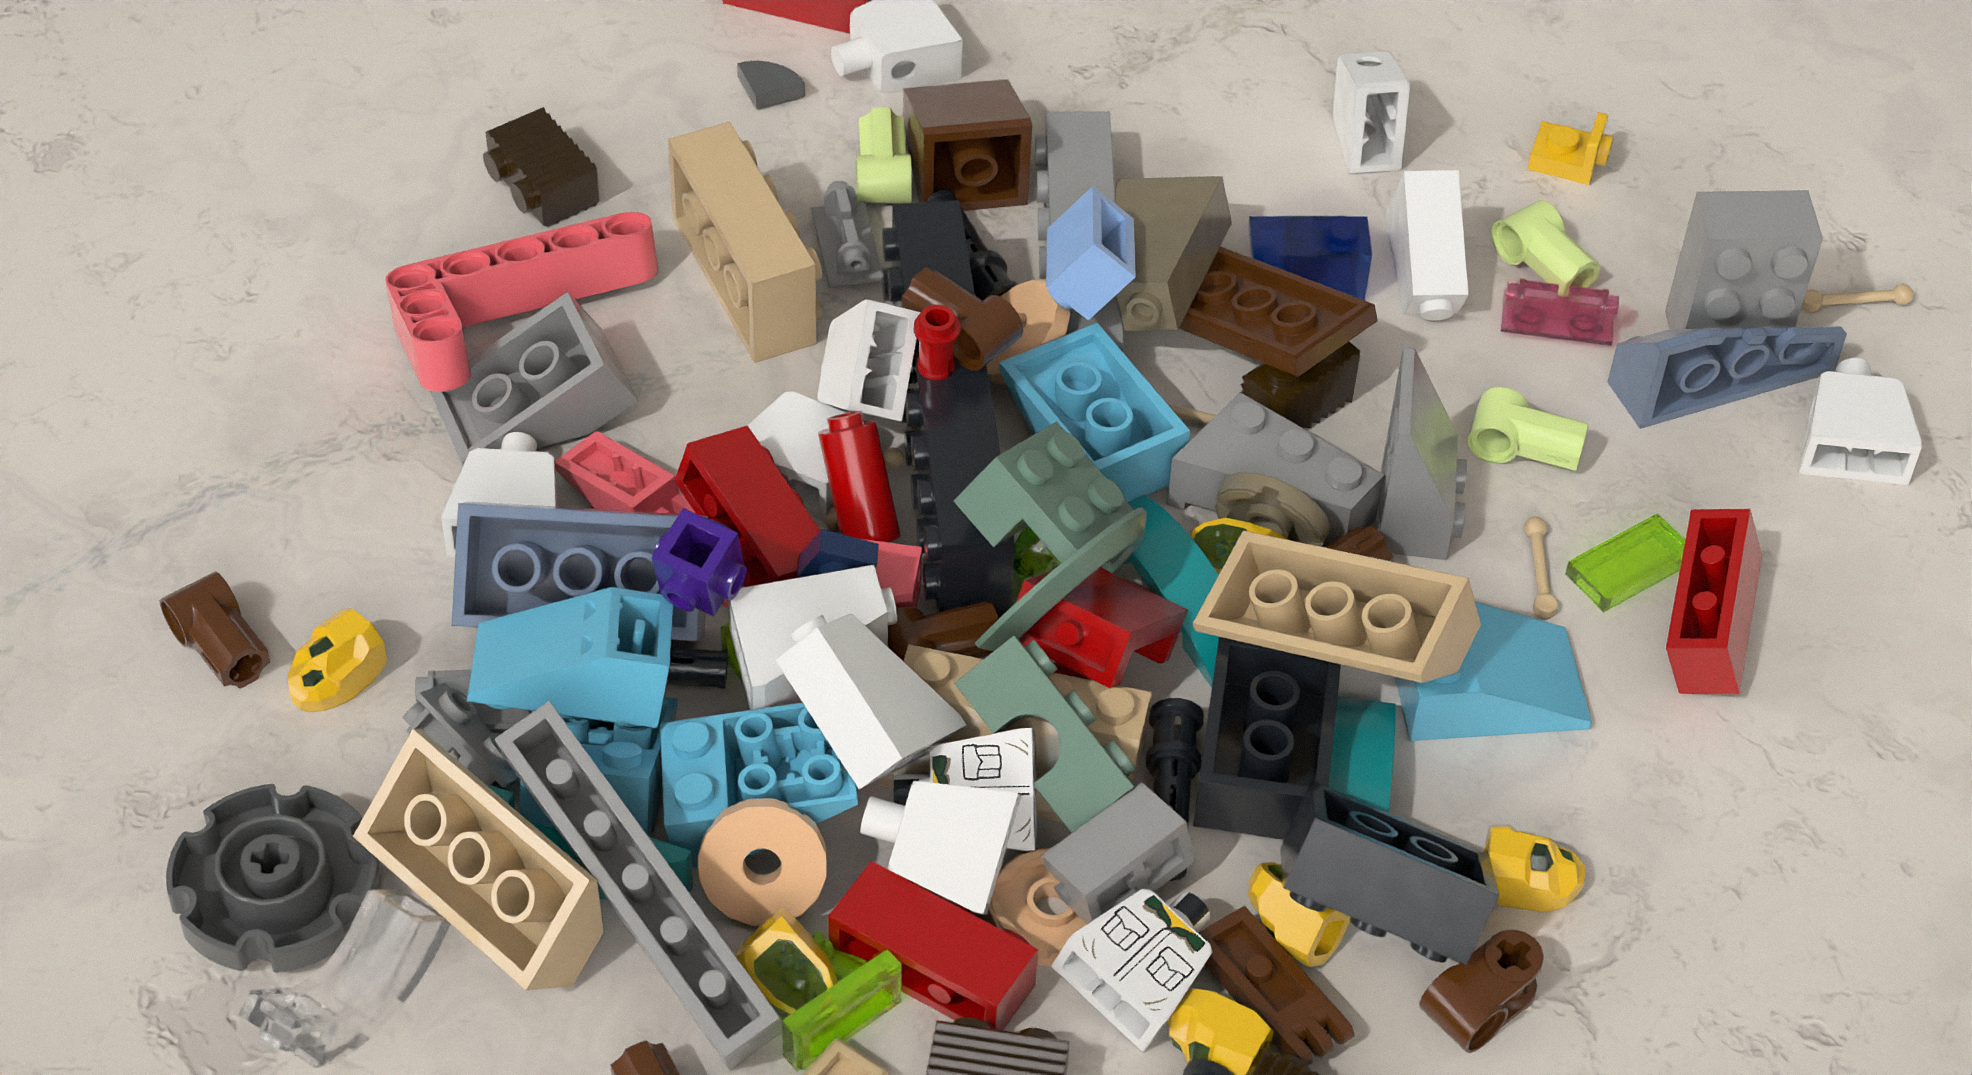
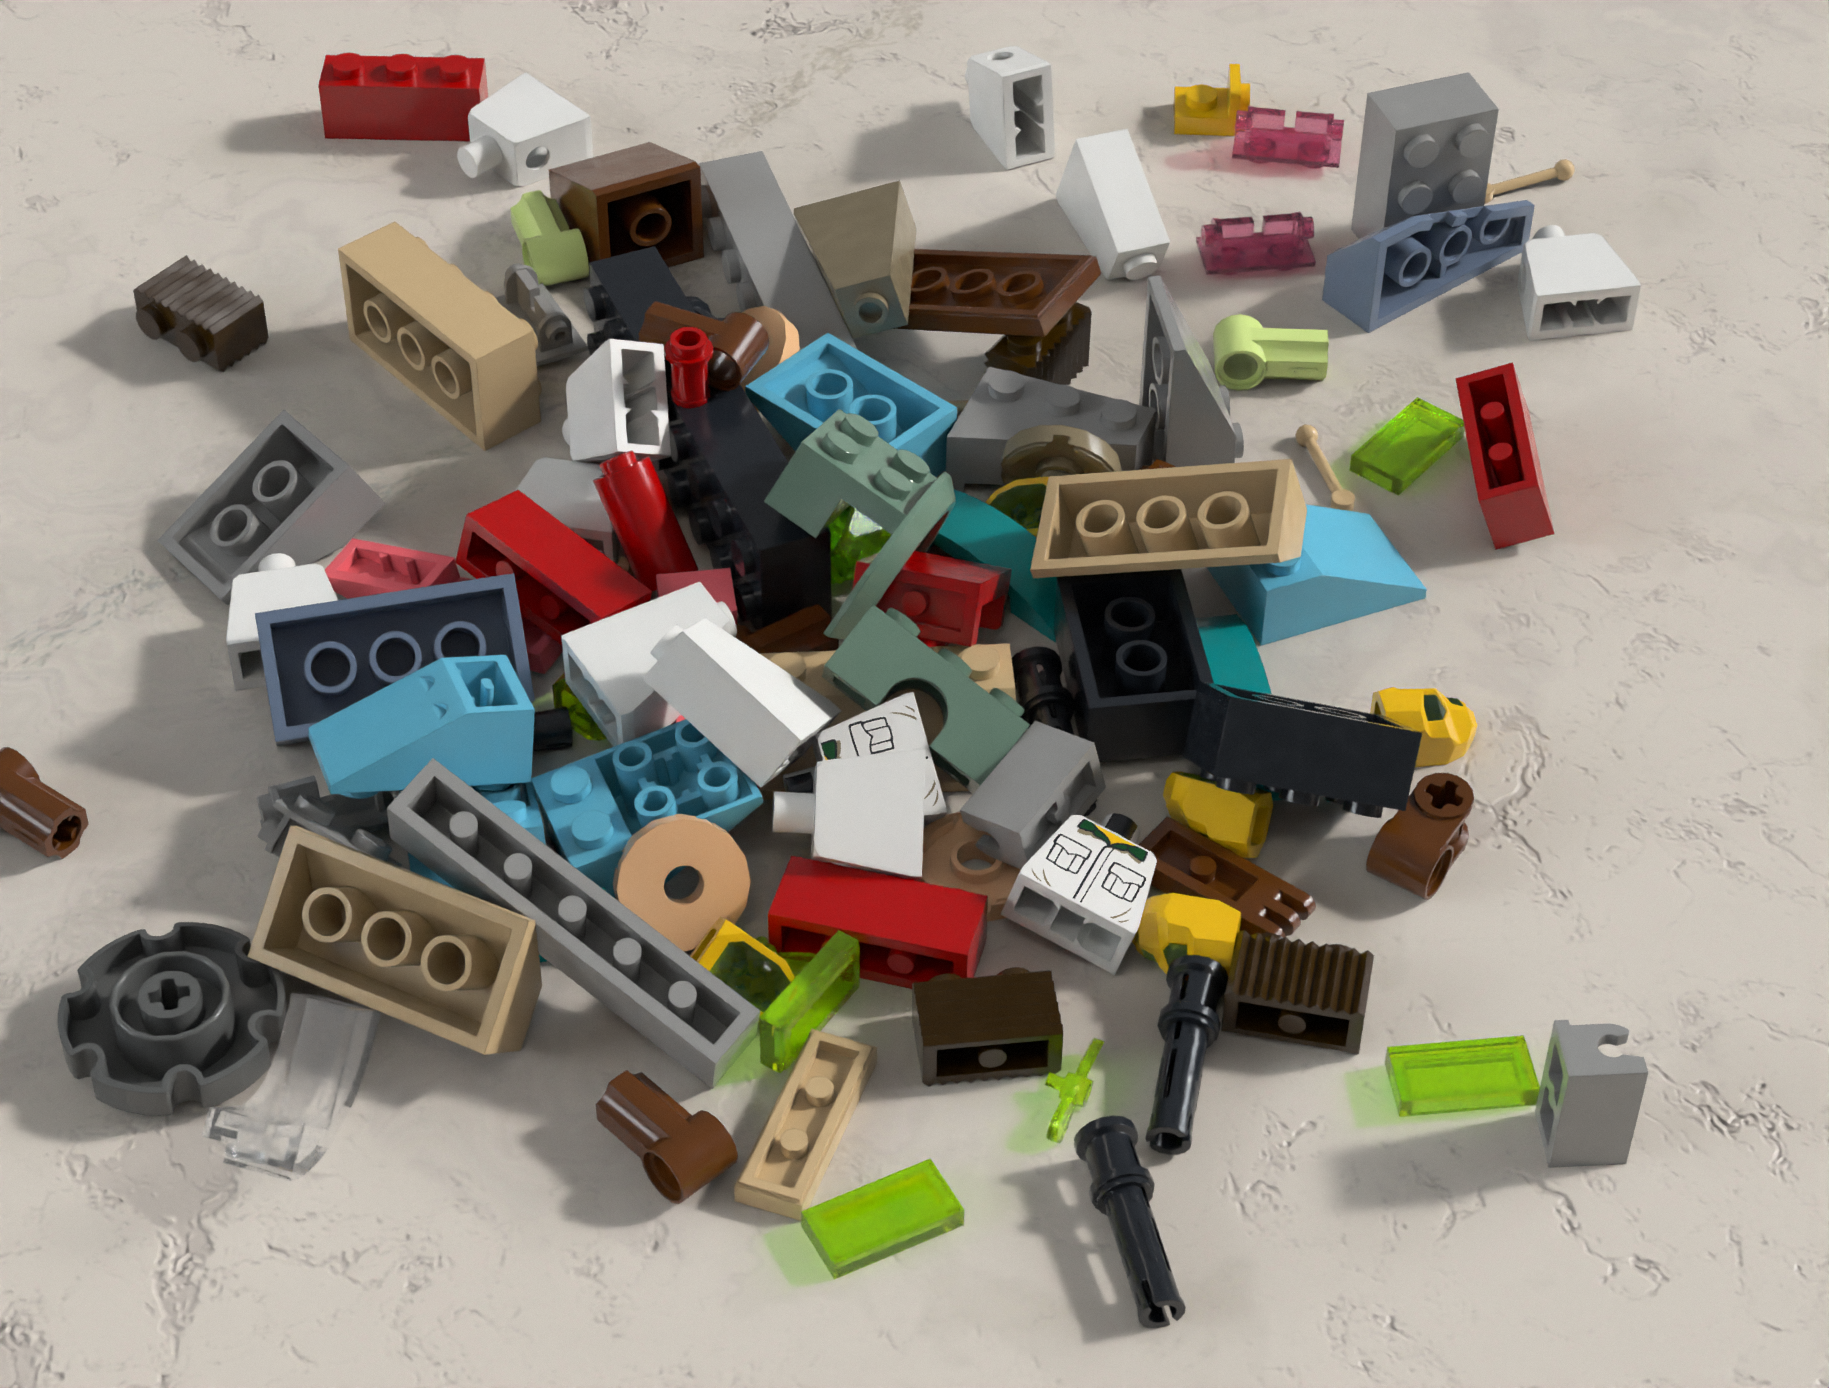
camera: 15 degrees left, 5 degrees down
(336, 662) = (161, 806): yellow rock -> none
(506, 278) = (147, 453): coral beam -> none
(698, 563) = (527, 612): dark purple brick -> none
(769, 83) = (403, 197): dark grey tile -> none
(835, 552) = (654, 578): dark blue plate -> none
(1090, 254) = (802, 268): light blue piece -> none
(1319, 248) = (1011, 225): clear blue slope -> none
(1539, 240) = (1213, 186): yellowish green piece -> none
(1653, 210) = (1264, 139): none -> clear pink hinge

